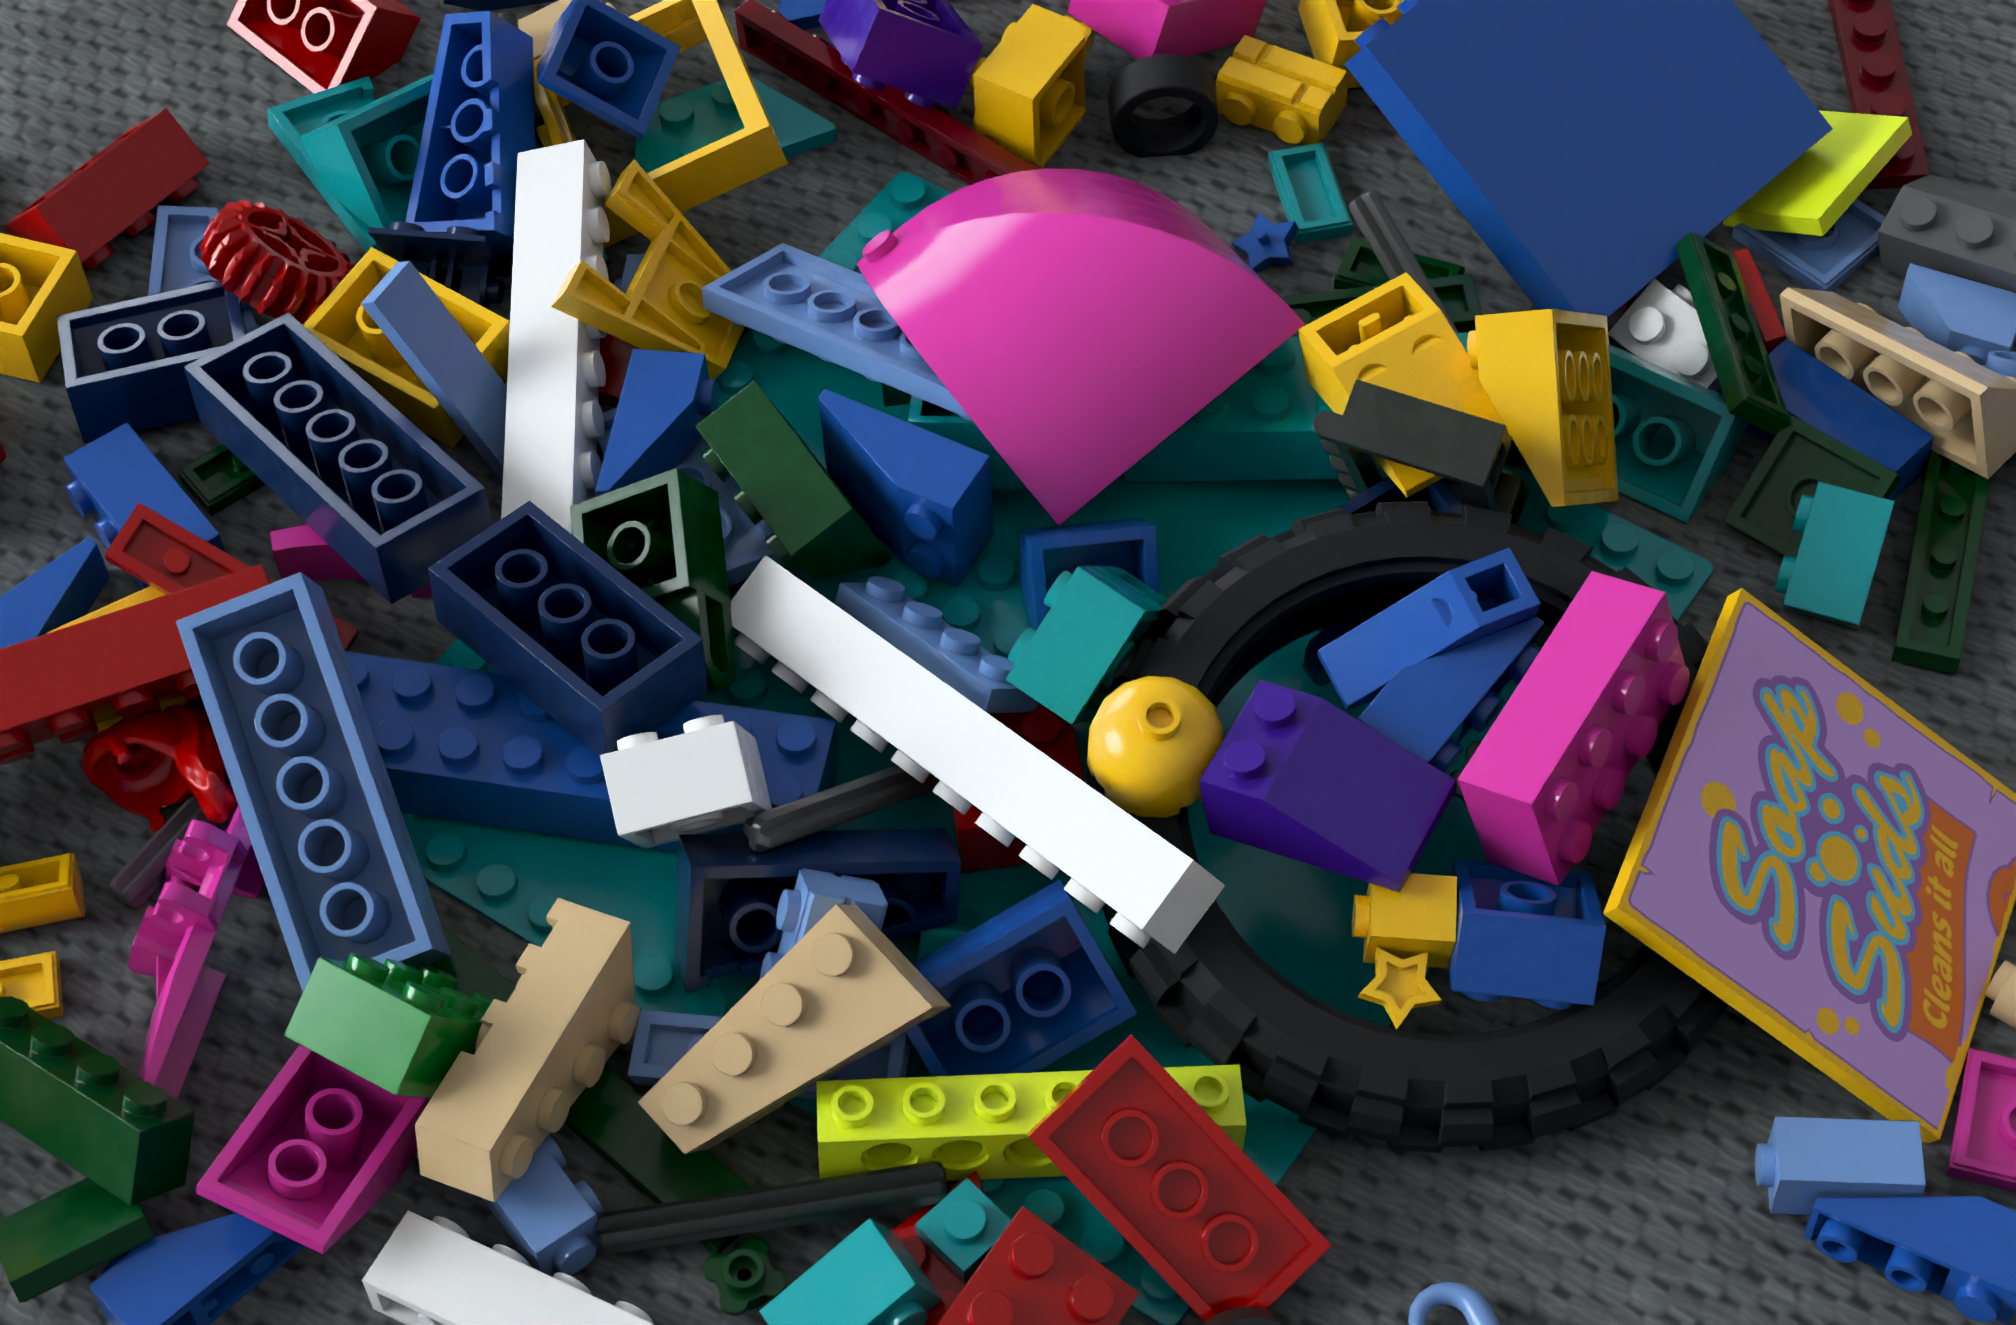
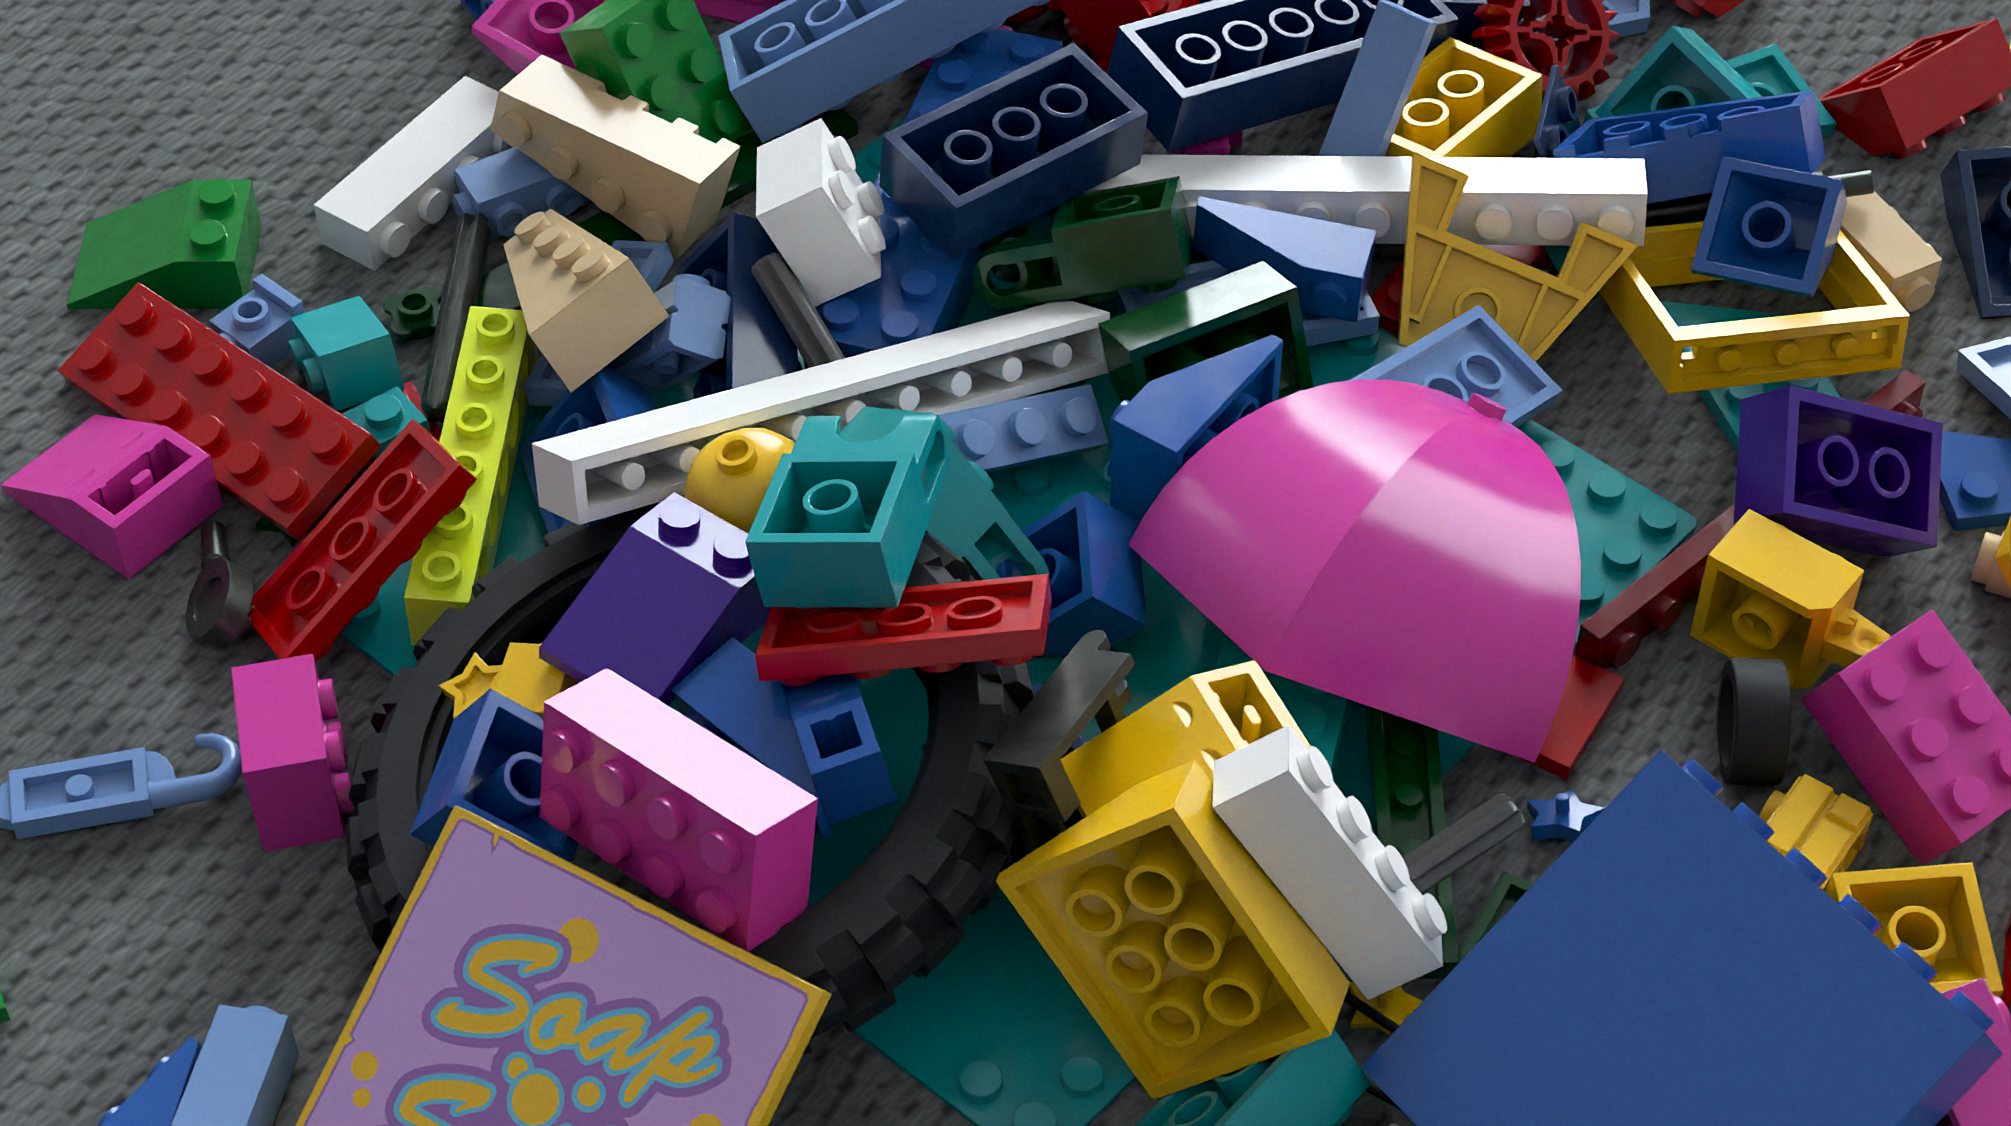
camera: 95 degrees right, 5 degrees down
(1209, 605) = (847, 515): none -> teal brick
(1346, 560) = (929, 630): none -> red plate
(1452, 1204) = (291, 752): none -> dark pink brick
(1479, 275) = (1329, 861): none -> white brick

